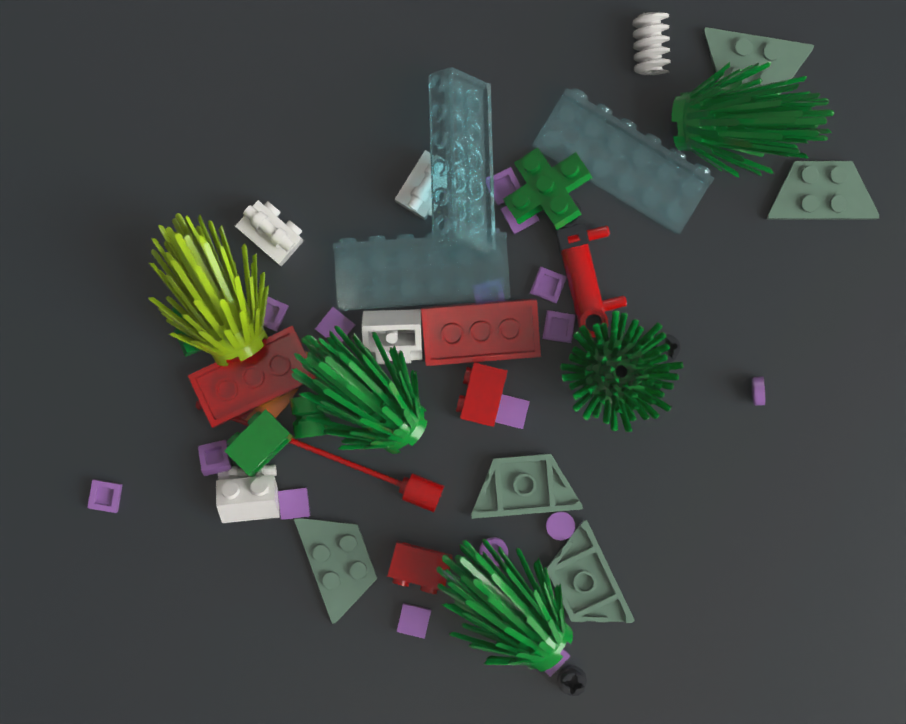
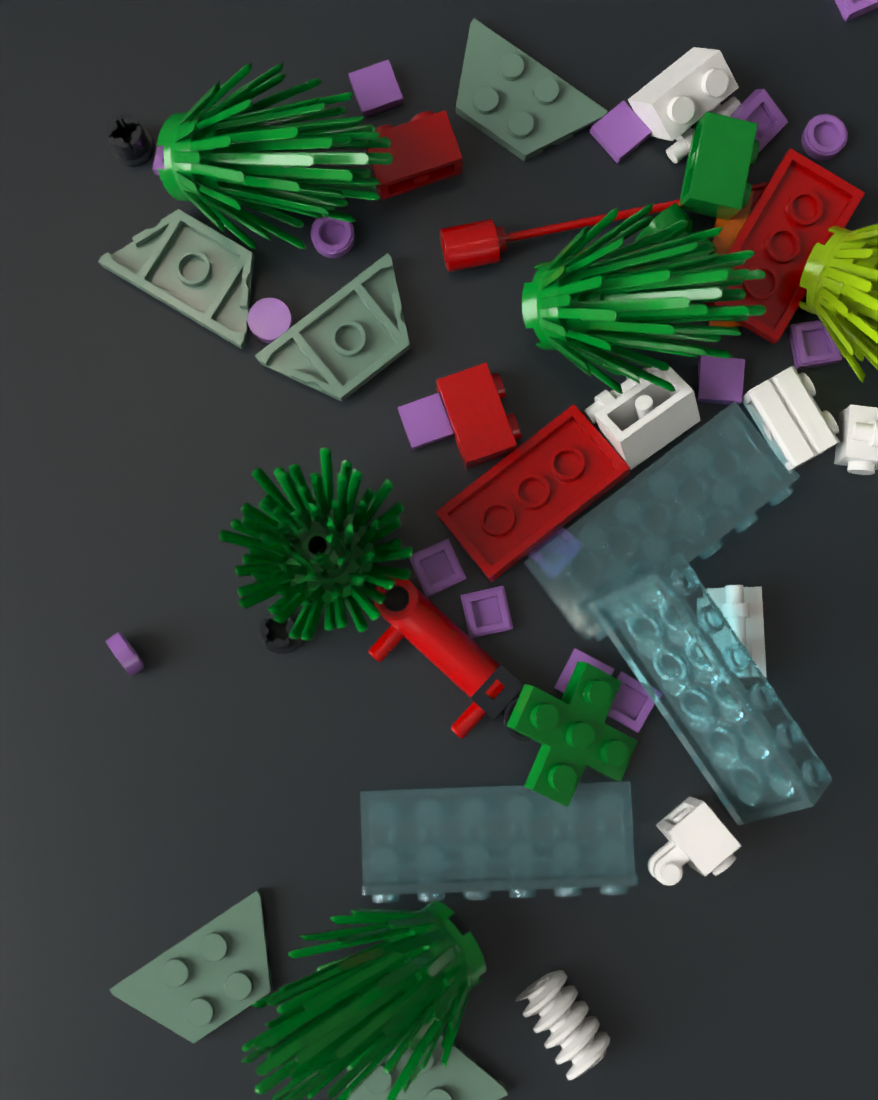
camera: 150 degrees right, 5 degrees down
(182, 424) = (824, 137): none -> medium lavender tile
(313, 279) = (791, 418): none -> white brick
(522, 92) = (693, 838): none -> white brick

